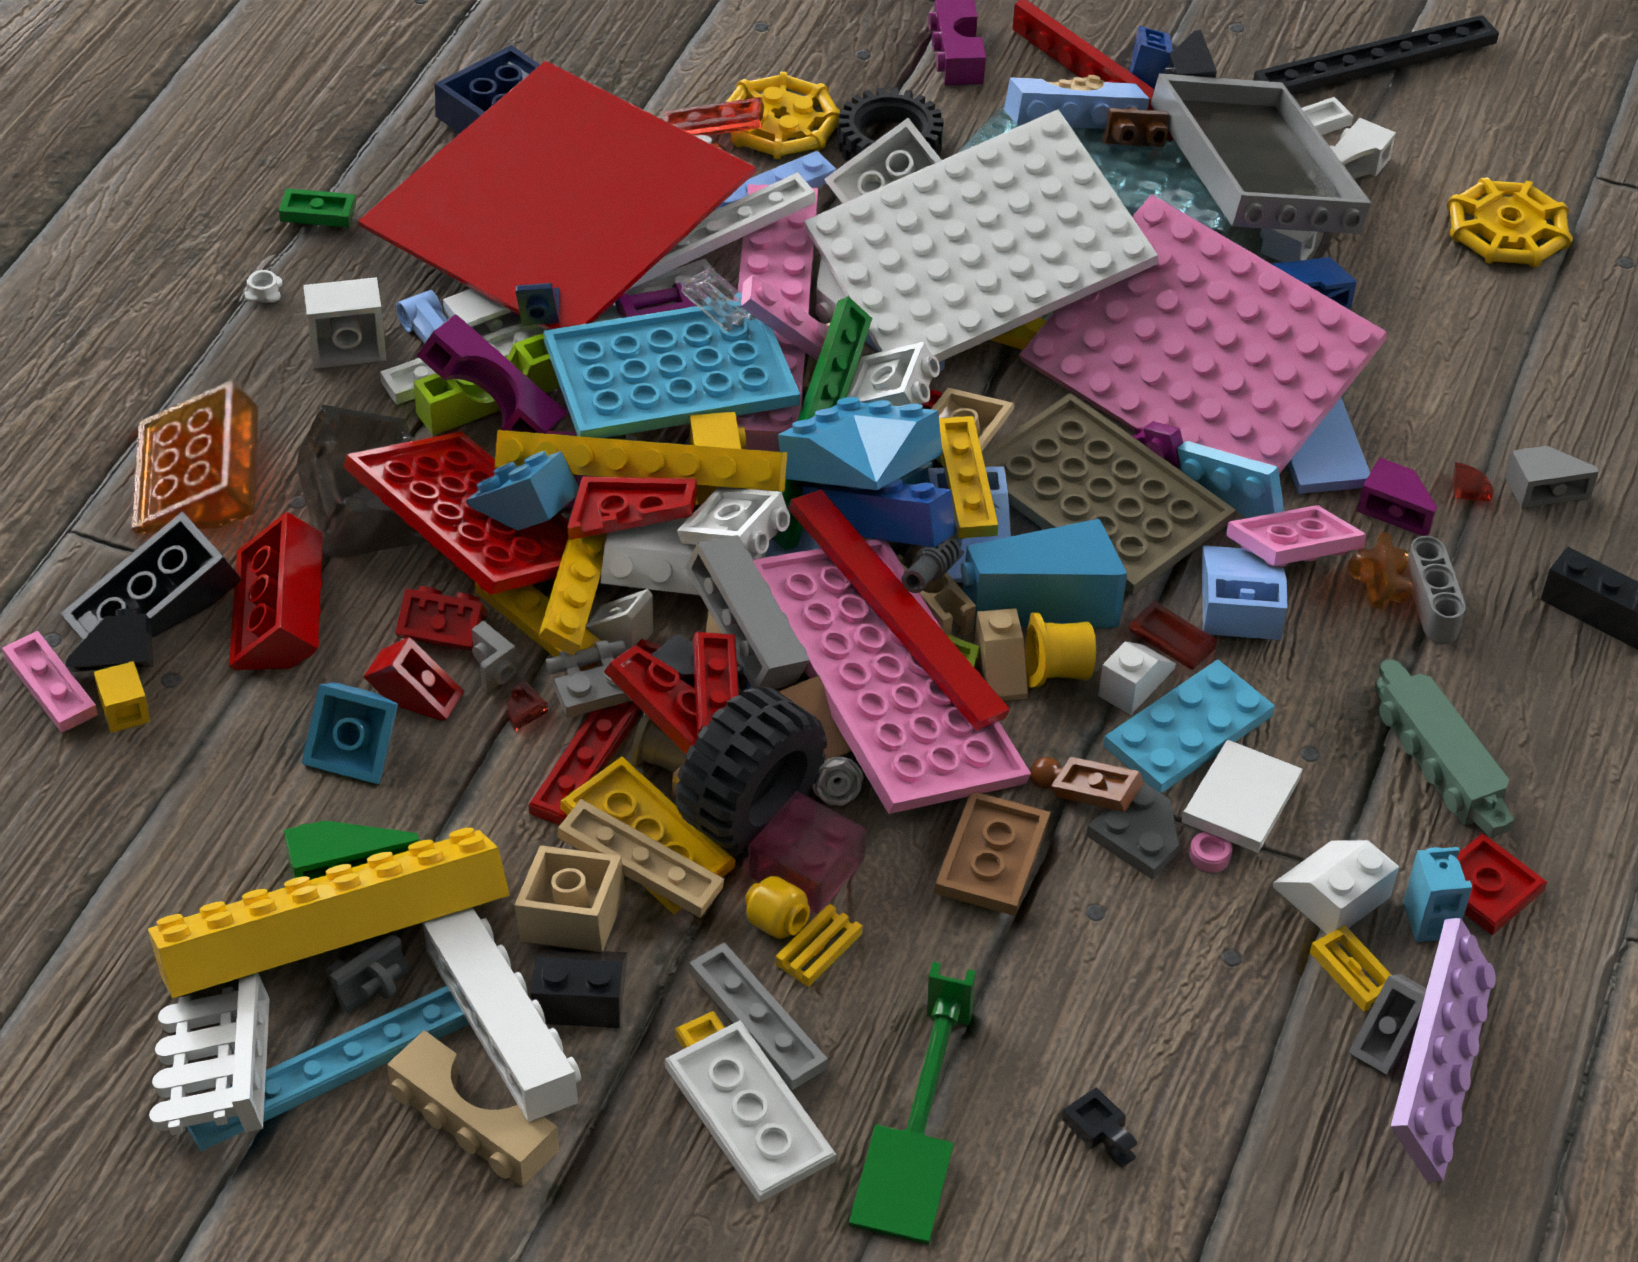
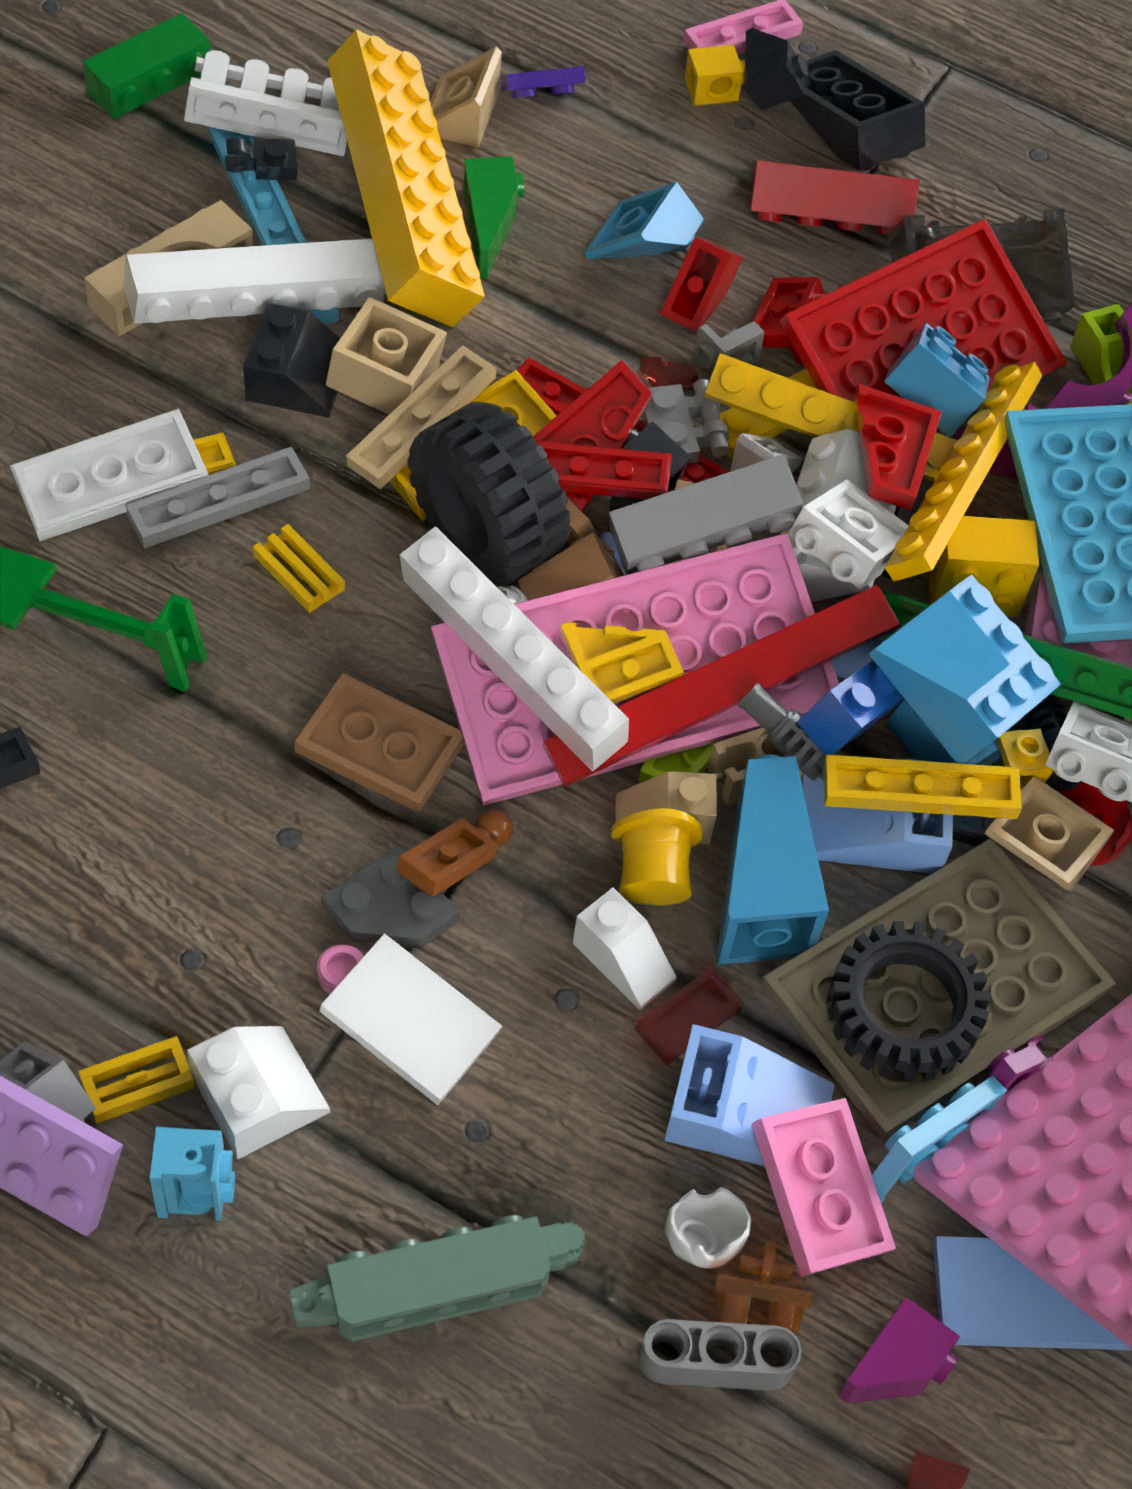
camera: 95 degrees right, 10 degrees up
(144, 834) = (525, 83): none -> dark purple plate
(170, 1187) = (145, 65): none -> green brick
(182, 882) = (467, 98): none -> tan slope
(197, 461) = (1027, 155): clear orange slope -> none
(303, 1046) = (268, 158): none -> black plate
(369, 973) = (340, 210): dark grey hips -> none
(777, 907) = (342, 528): yellow head -> none
(808, 849) = (376, 569): clear pink brick -> none
(900, 667) = (621, 659): none -> yellow wing
(915, 730) = (514, 649): none -> white brick
(1144, 463) = (885, 1048): none -> black tyre
(1188, 726) = (538, 997): medium azure plate -> none
(1347, 598) = (708, 1227): none -> white hair
(1499, 883) = (224, 1275): red tile -> none

